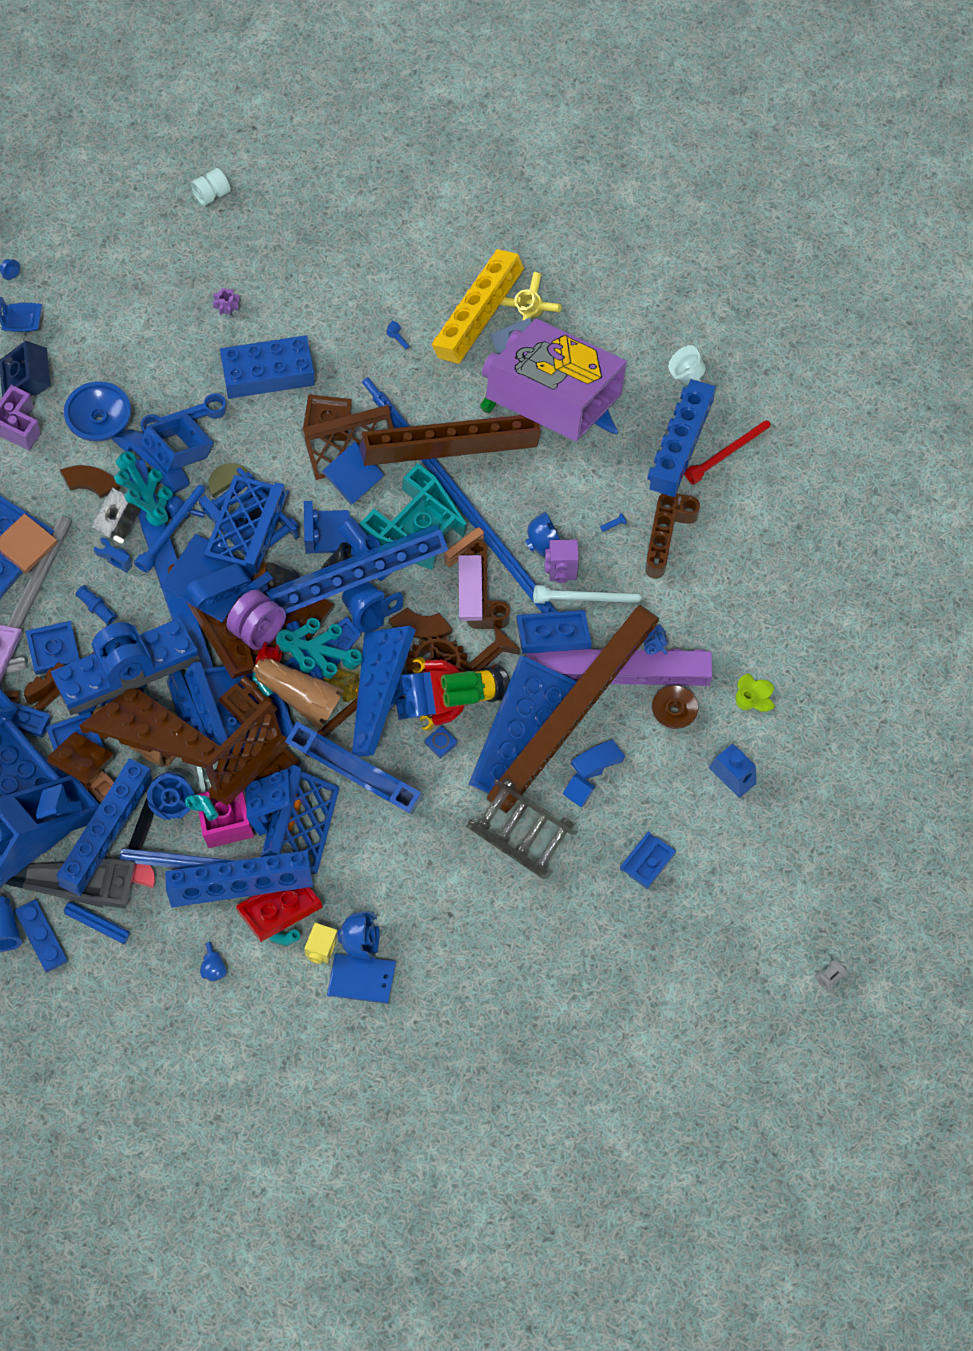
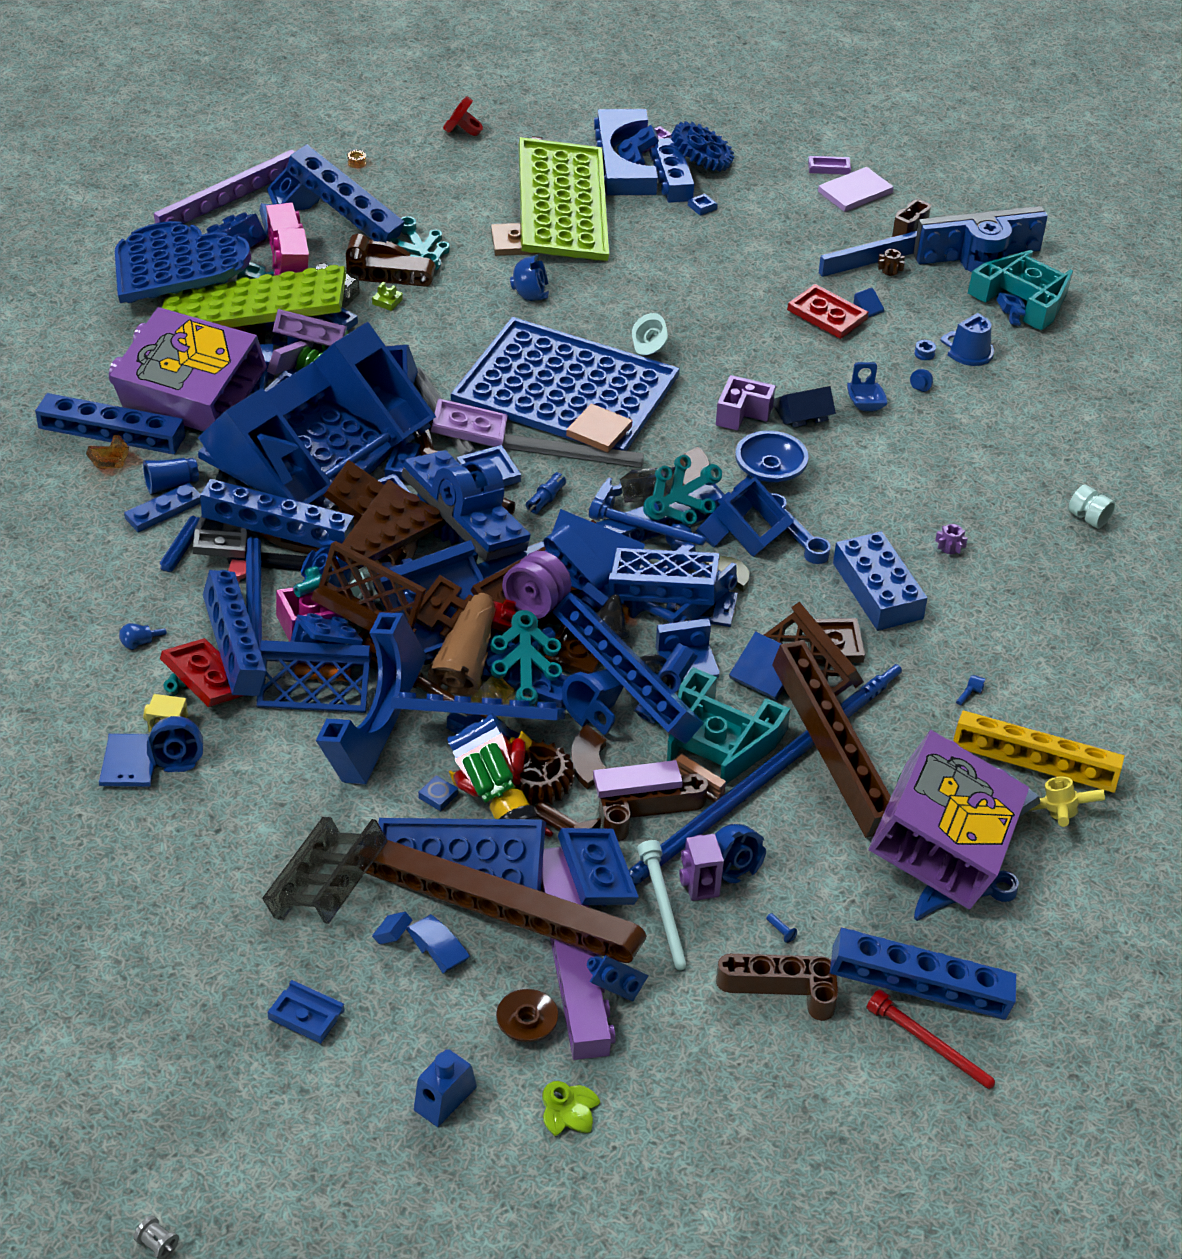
camera: 80 degrees right, 20 degrees down
(687, 365) = (1036, 978): light aqua piece -> none

